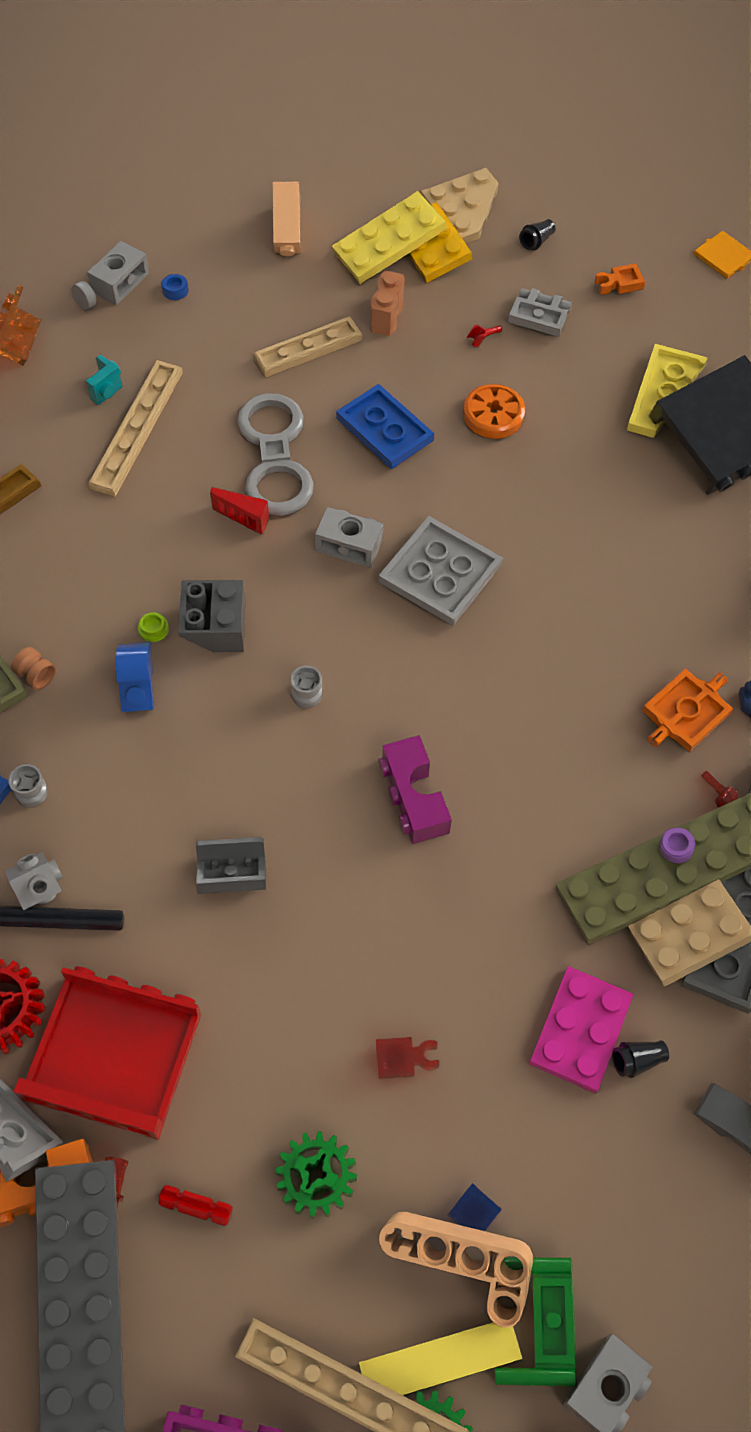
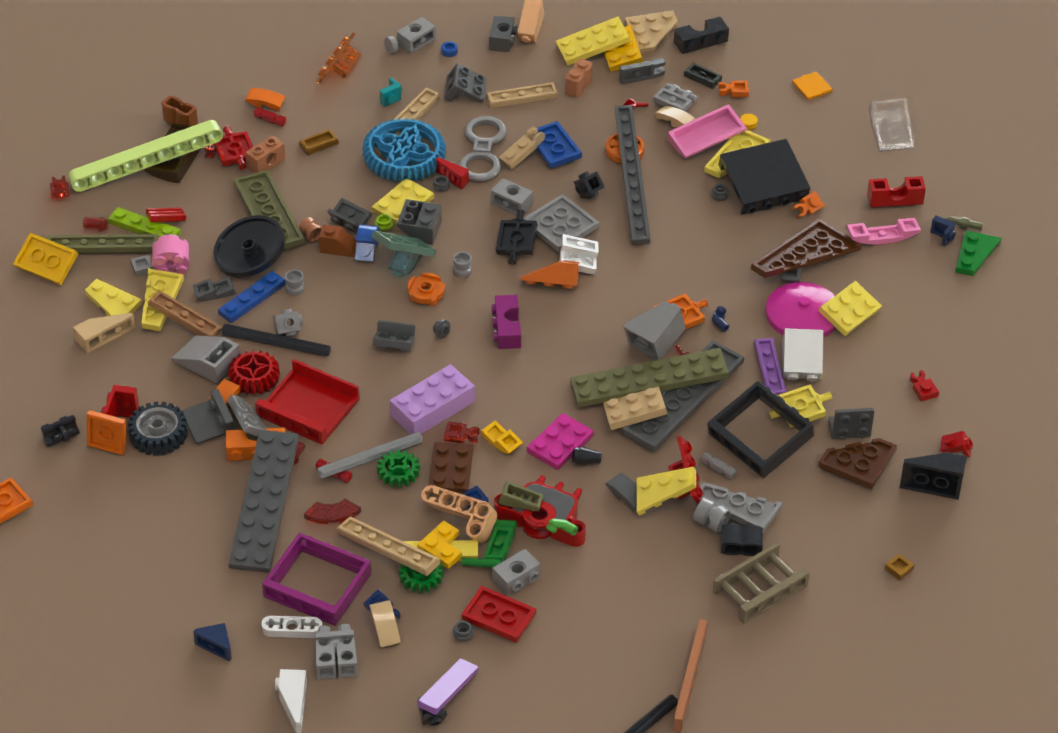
camera: 15 degrees right, 15 degrees down
(83, 684) = (336, 241): none -> dark orange slope
(93, 624) = (349, 215): none -> dark grey bracket
(149, 501) = (403, 149): none -> dark azure gear
(160, 582) = (394, 201): none -> light yellow plate
(200, 673) = (403, 243): none -> sand green tile
(208, 698) = (403, 262): none -> clear light blue slope
(215, 339) = (465, 81): none -> dark grey bracket
(216, 1316) = (335, 512): none -> clear red tile
(226, 526) = (441, 183): none -> dark grey plate
(248, 247) = (502, 33): none -> dark grey brick
(252, 1160) = (369, 455): none -> light grey axle
(261, 765) = (432, 295): none -> orange plate
(307, 827) = (441, 328): none -> dark grey plate
(335, 998) = (432, 400): none -> lavender brick
(338, 443) = (522, 148): none -> tan hinge
(380, 614) = (516, 237): none -> black plate
(408, 1142) = (451, 466): none -> reddish brown plate
(438, 1360) = (438, 544): none -> yellow plate
(465, 490) = (588, 184): none -> black brick
(469, 673) = (560, 272): none -> orange slope
(475, 274) = (641, 71): none -> dark grey hinge
(478, 1049) = (500, 438): none -> yellow slope
(489, 626) = (581, 251): none -> white slope
(528, 463) = (632, 175): none -> dark grey plate
(536, 234) = (689, 54): black cone -> none
(549, 1221) = (509, 498): none -> olive slope
(557, 194) = (690, 40): none -> black arch
(558, 343) = (676, 116): none -> tan slope
(564, 265) = (702, 75): none -> pearl dark grey tile
(609, 362) = (706, 131): none -> bright pink slope
(616, 1194) = (555, 505): none -> red piece
(659, 330) = (749, 121): none -> yellow tile
(664, 462) = (720, 192): none -> dark grey plate
(666, 1260) = (563, 524): none -> bright green arm
(677, 763) = (656, 330): none -> light grey slope
(677, 845) = (641, 366): medium lavender tile -> none

